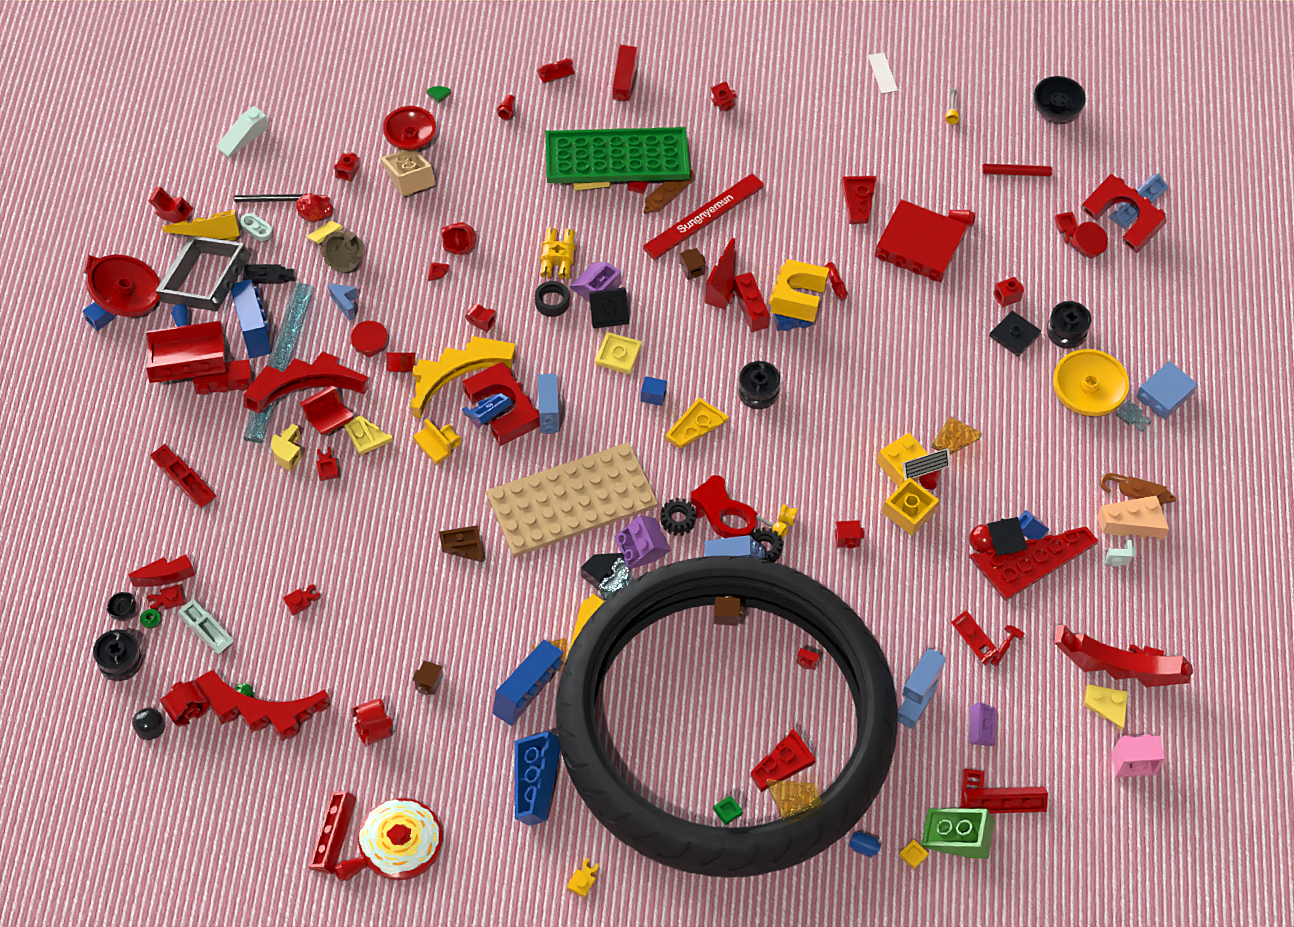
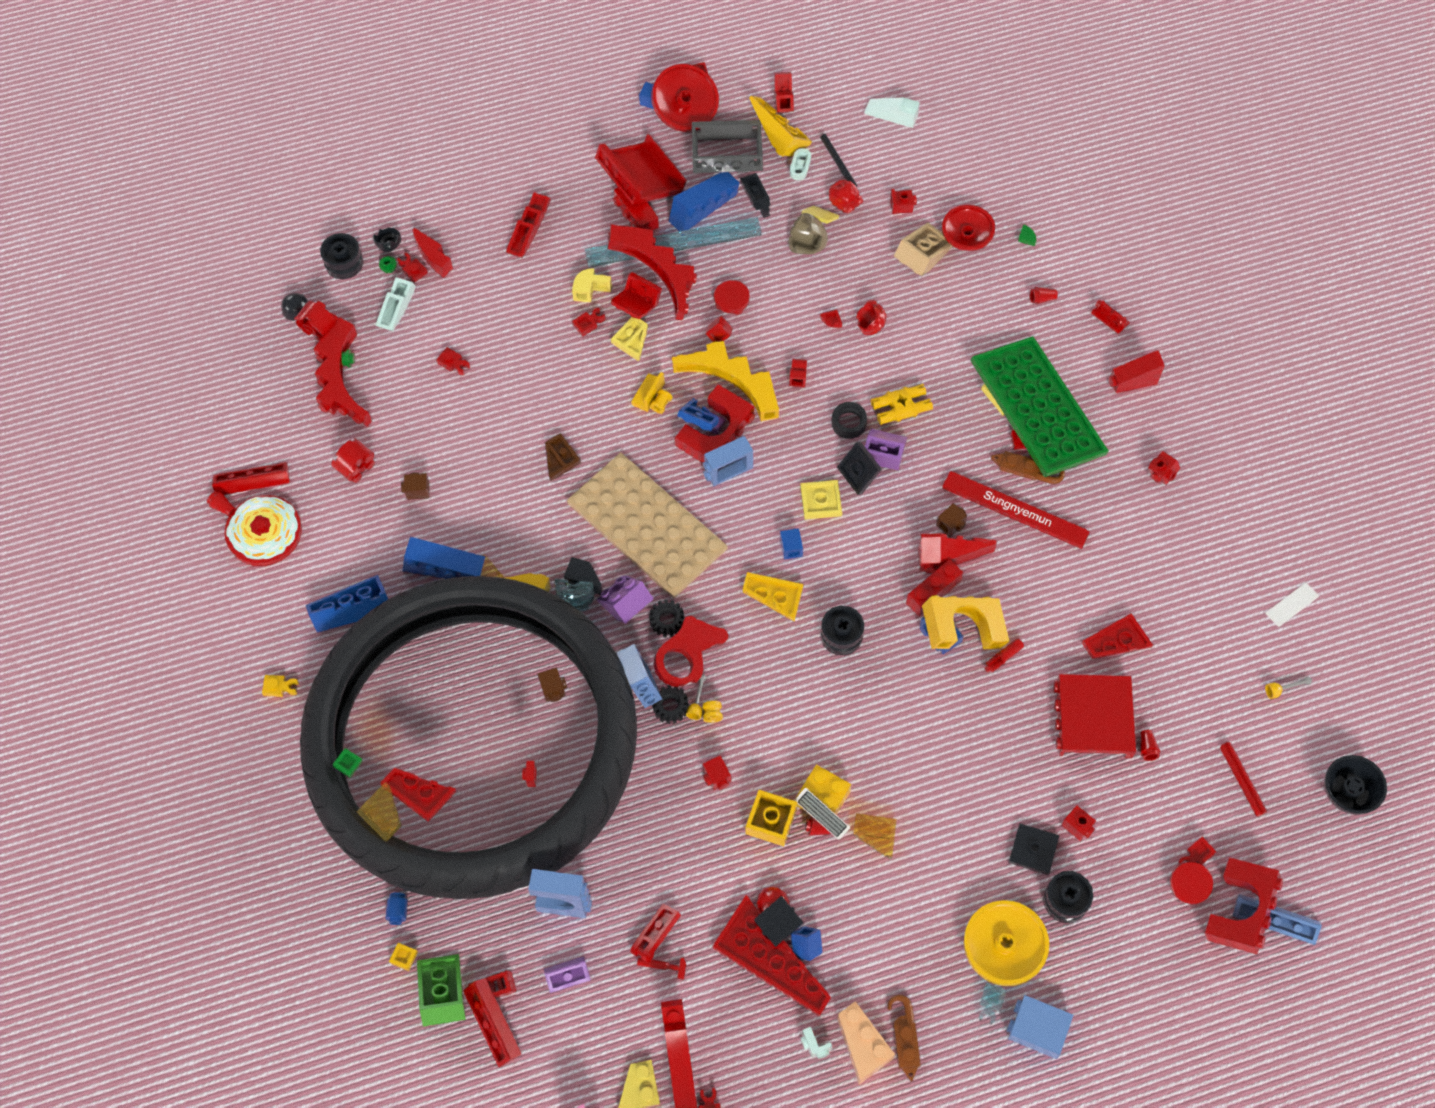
camera: 70 degrees right, 5 degrees up
(180, 315) = (680, 153): blue cone -> none
(344, 297) = (760, 259): medium blue slope -> none

